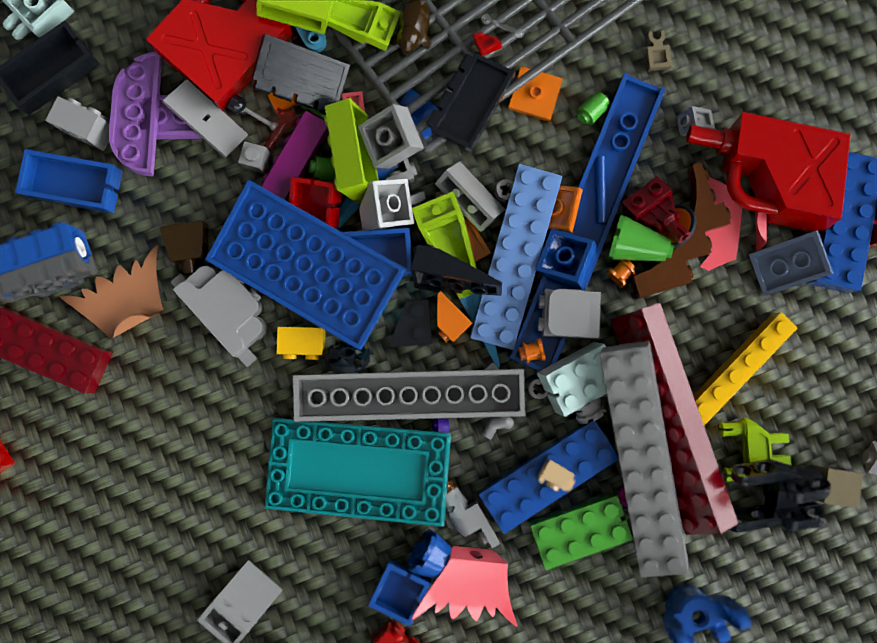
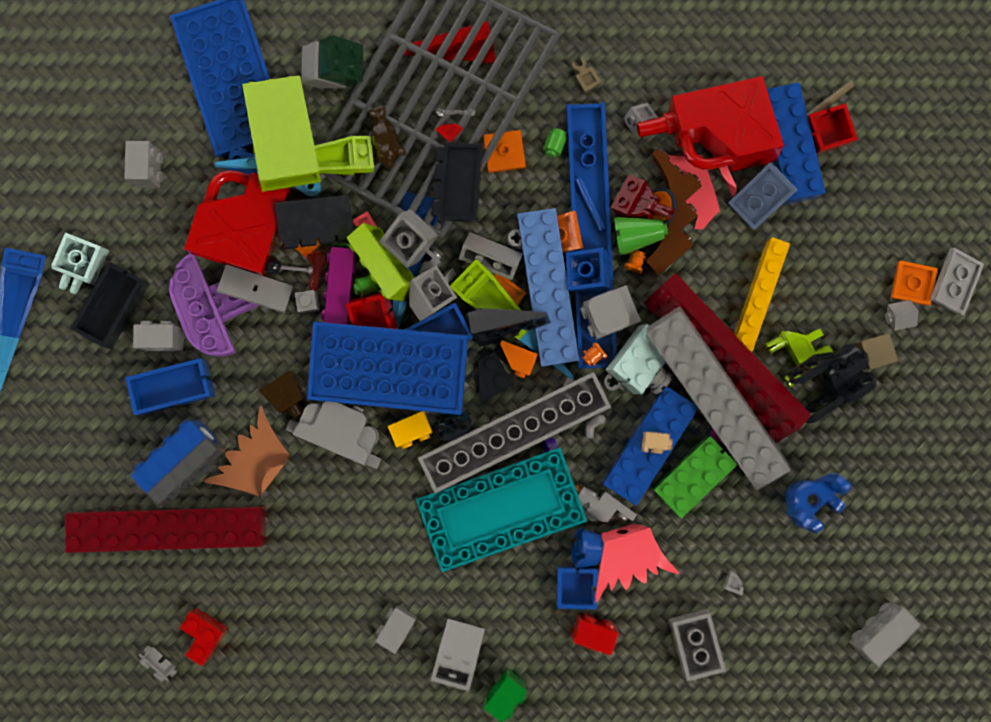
camera: 20 degrees left, 0 degrees up
(188, 546) = (395, 629): none -> light grey brick

